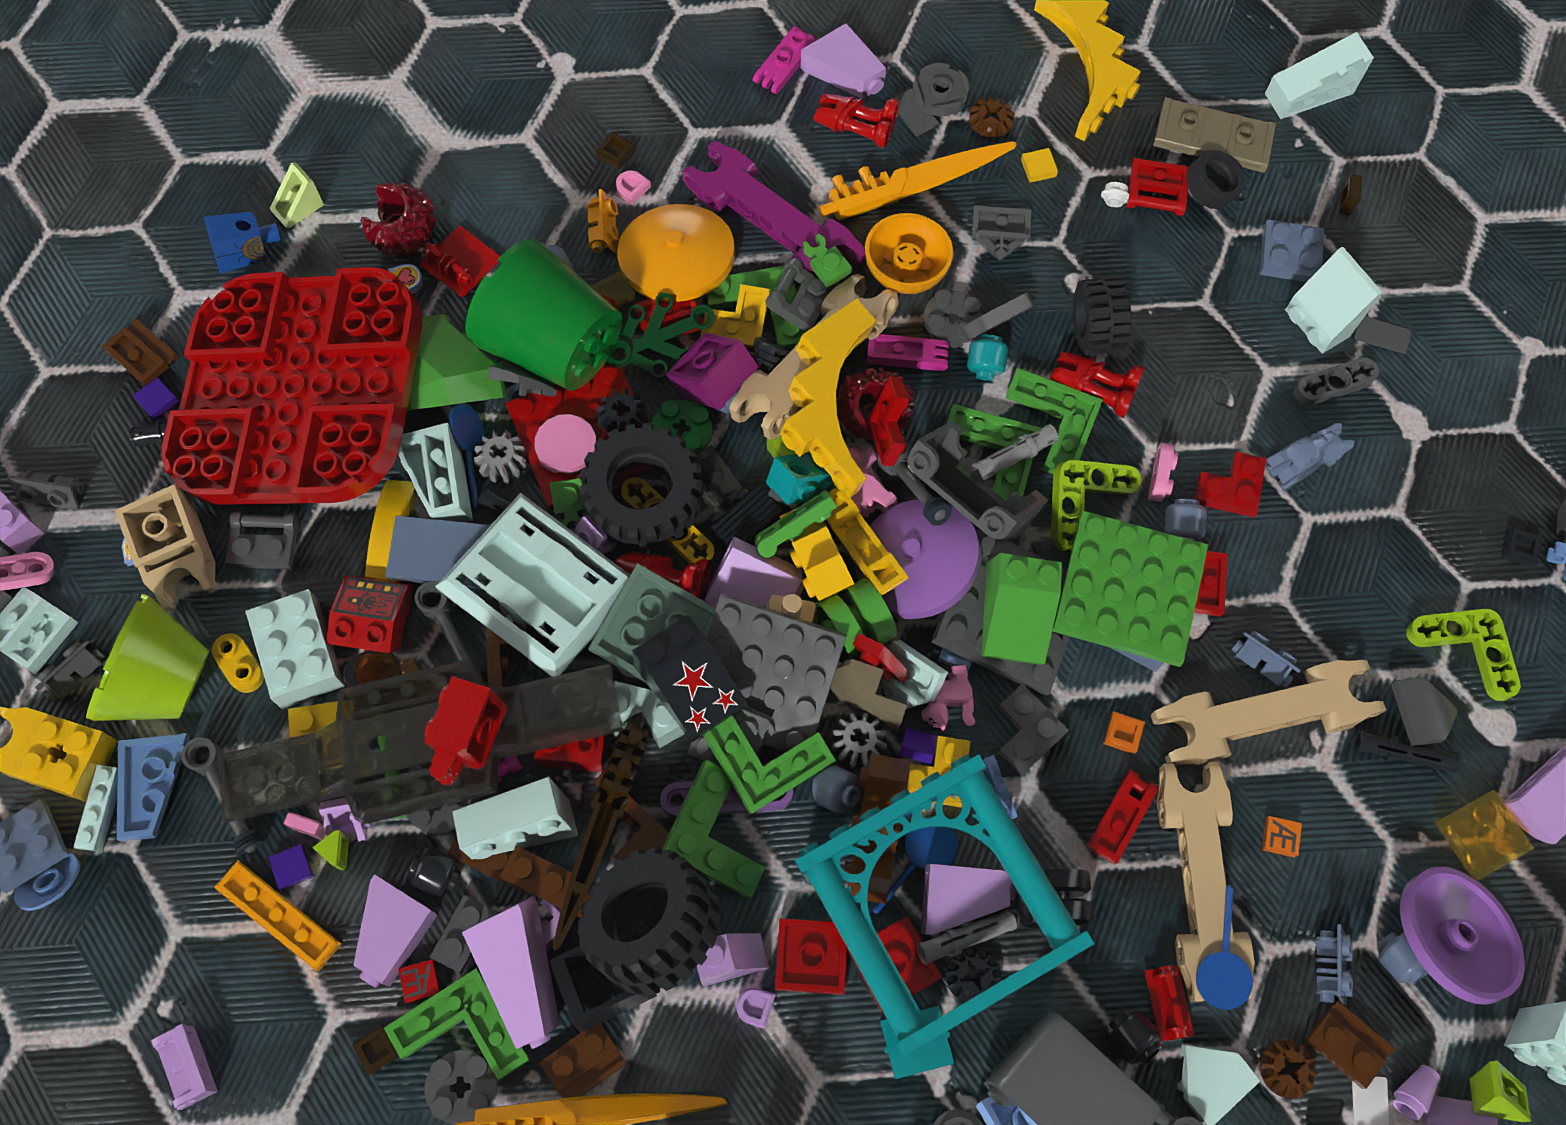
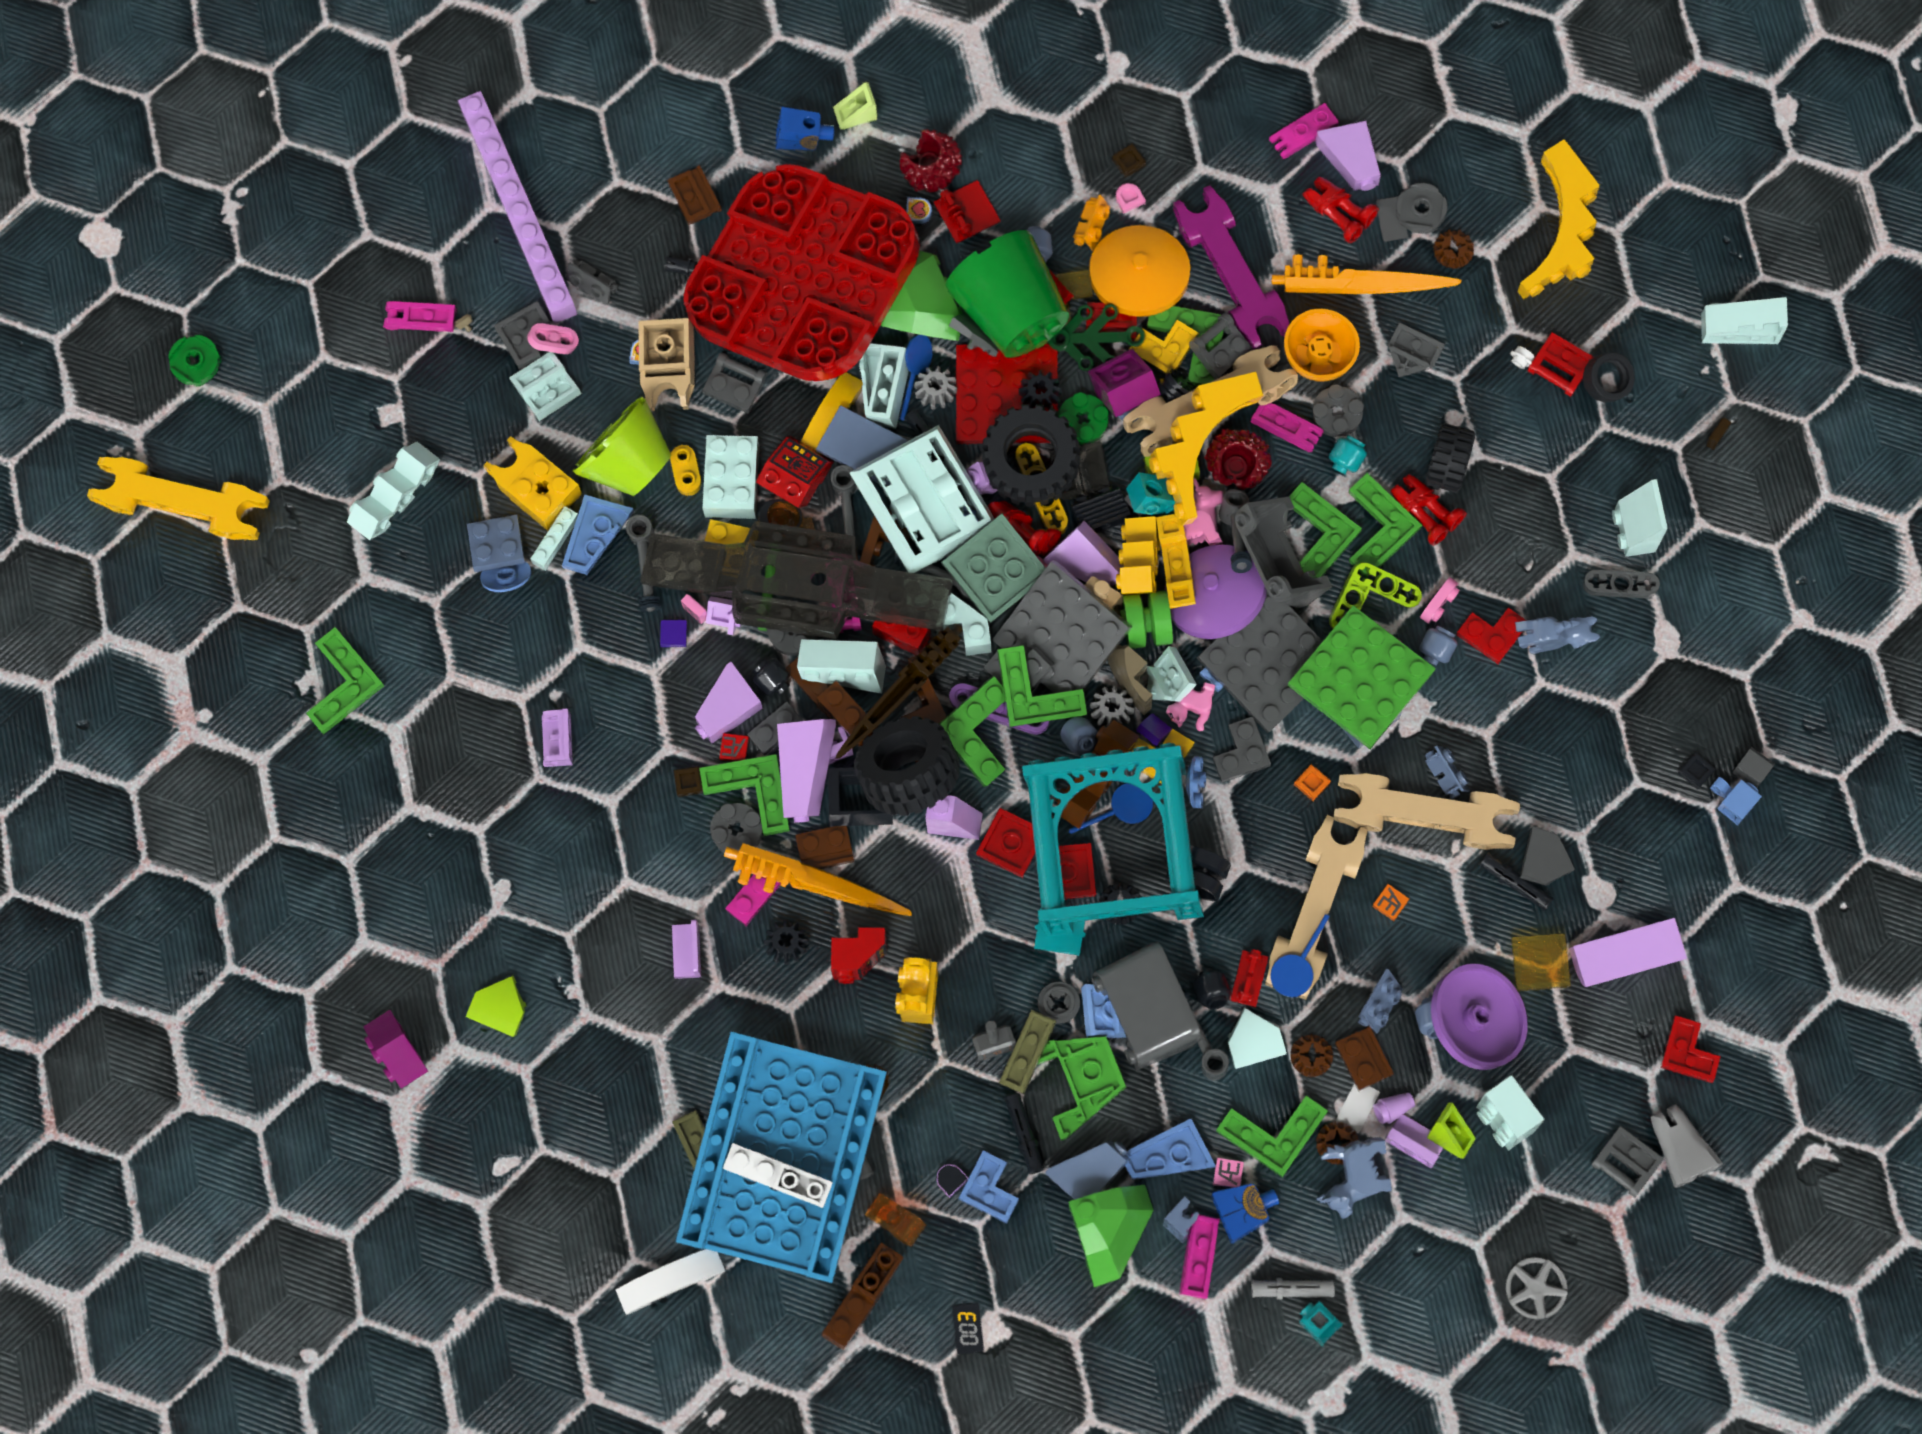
camera: 30 degrees right, 5 degrees up
(59, 679) = (556, 431): dark grey hinge -> none
(155, 398) = (693, 237): dark purple tile -> none
(278, 916) = (653, 663): light orange tile -> none
(334, 849) = (708, 633): lime slope -> none
(463, 728) = (832, 584): red hinge -> none
(564, 443) = (988, 397): bright pink tile -> none
(567, 499) = (972, 442): bright green plate -> none
(688, 678) = (1003, 612): black slope -> none
(755, 1006) = (958, 860): lavender tile -> none
(794, 524) = (1132, 529): bright green plate -> none
(827, 264) = (1254, 329): bright green plate -> none
(880, 657) = (1147, 650): red plate -> none
(884, 420) = (1235, 478): red plate -> none
(961, 895) = (1133, 845): lavender slope -> none
(965, 937) = (1125, 873): light grey pin -> none
(998, 316) = (1371, 425): dark grey beam -> none
(1020, 607) = (1271, 659): bright green slope -> none
(1025, 447) = (1329, 540): light grey pin -> none
(1039, 165) = (1472, 307): yellow tile -> none
(1122, 818) = (1279, 840): red plate -> none
(1200, 129) = (1628, 333): dark tan container -> none
(1213, 585) = (1432, 699): red plate -> none
(1291, 250) = (1645, 460): sand blue plate -> none
(1383, 335) = (1683, 560): dark grey sticker -> none
(1473, 633) = (1617, 818): lime beam -> none

